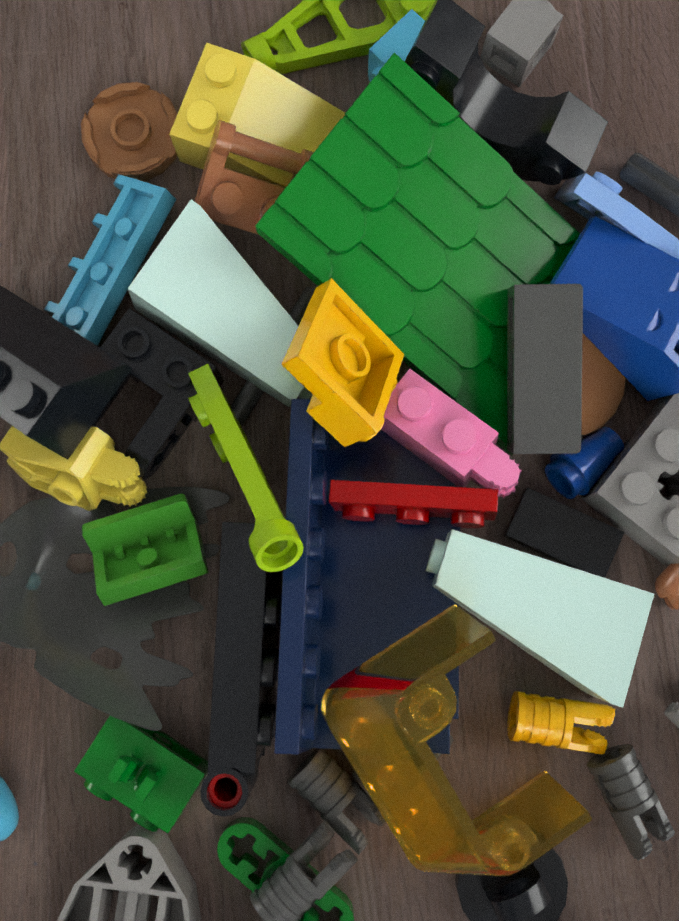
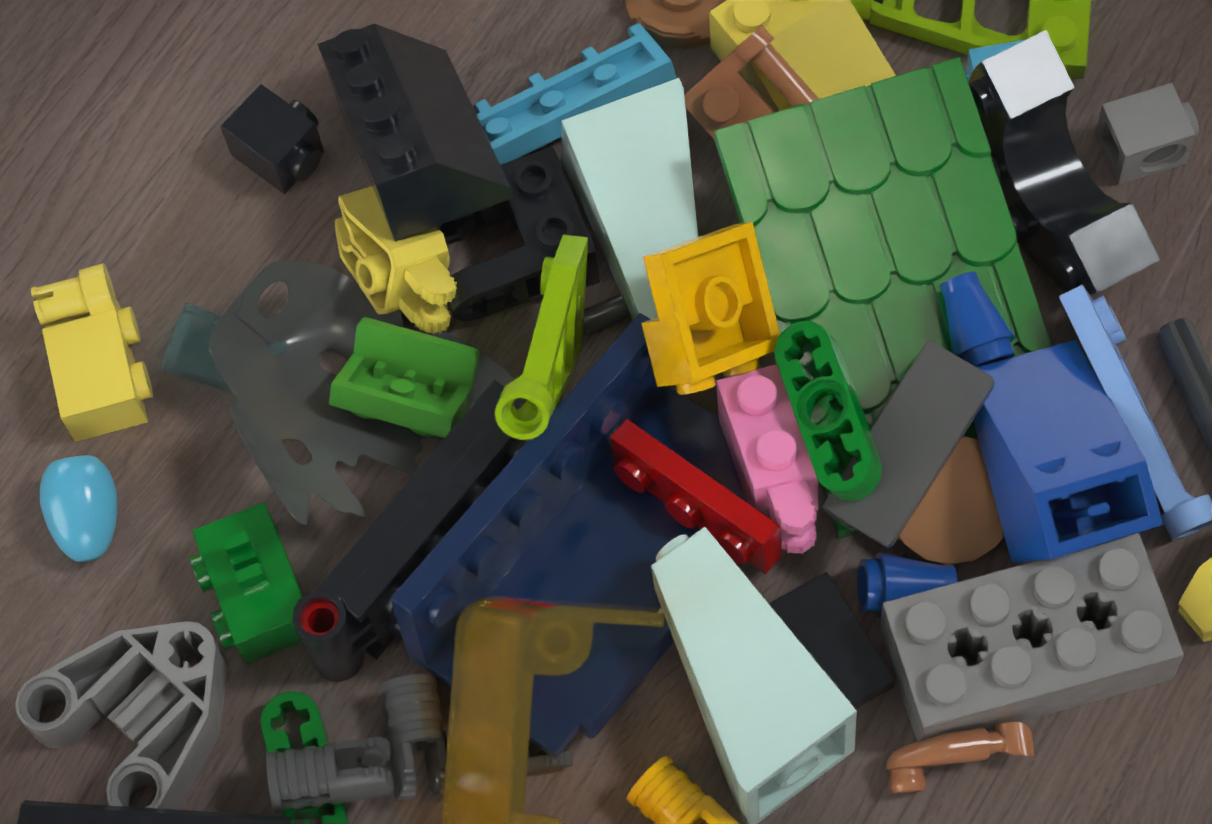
camera: 40 degrees right, 15 degrees down
(433, 369) = (849, 427): none -> green beam
(529, 251) = (974, 322): none -> blue cone

